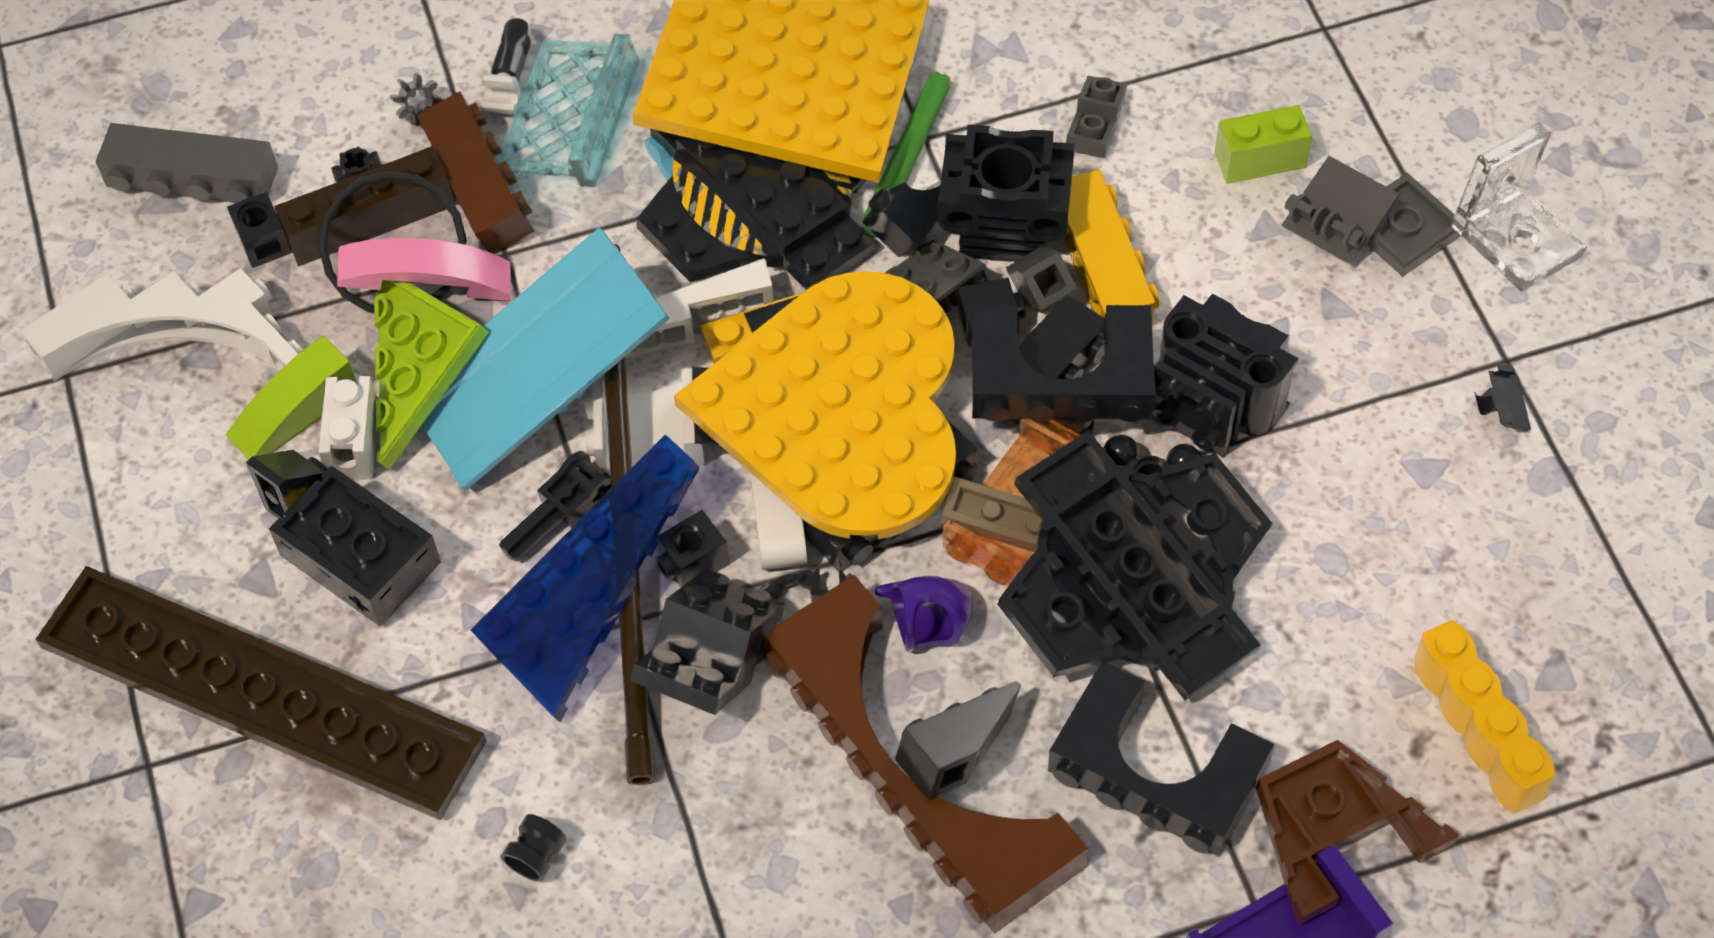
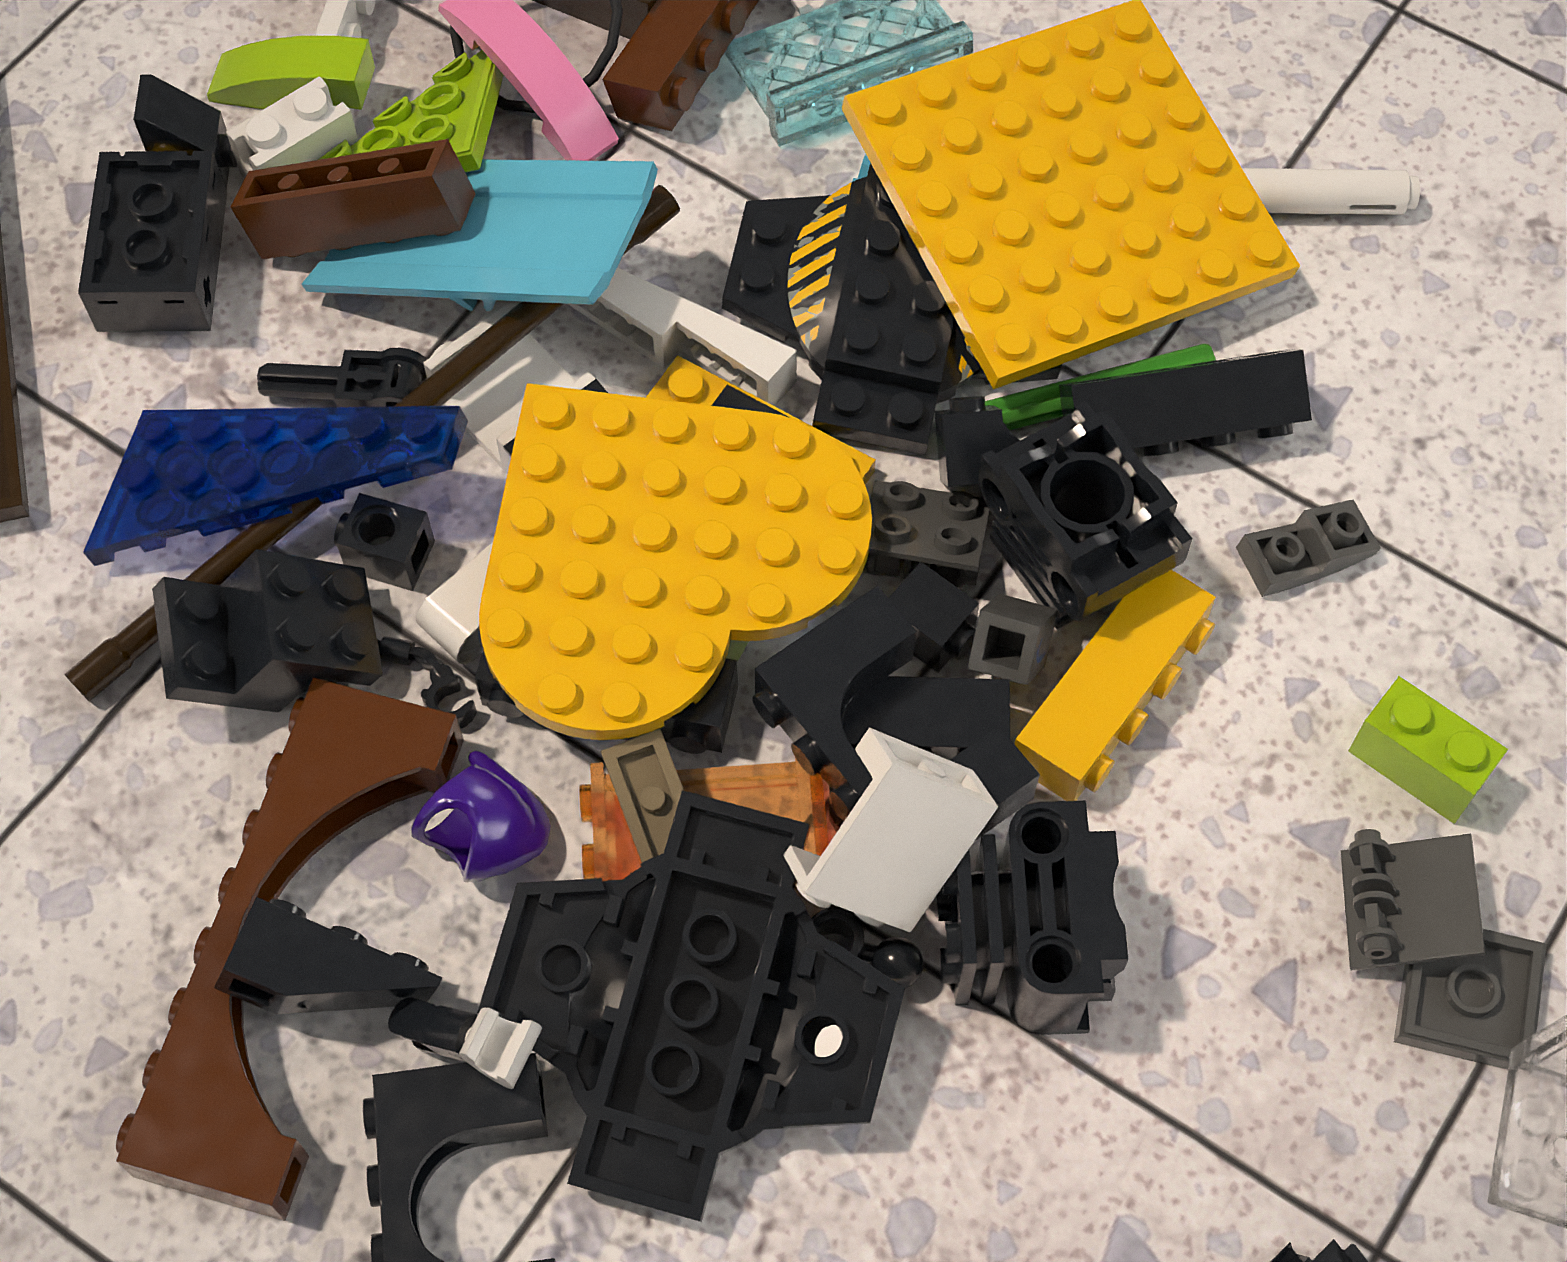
camera: 50 degrees right, 5 degrees up
(444, 412) = (354, 200): none -> reddish brown brick
(968, 97) = (1201, 400): none -> black brick
(1088, 670) = (482, 1040): none -> piece
(1145, 387) = (898, 837): none -> white panel

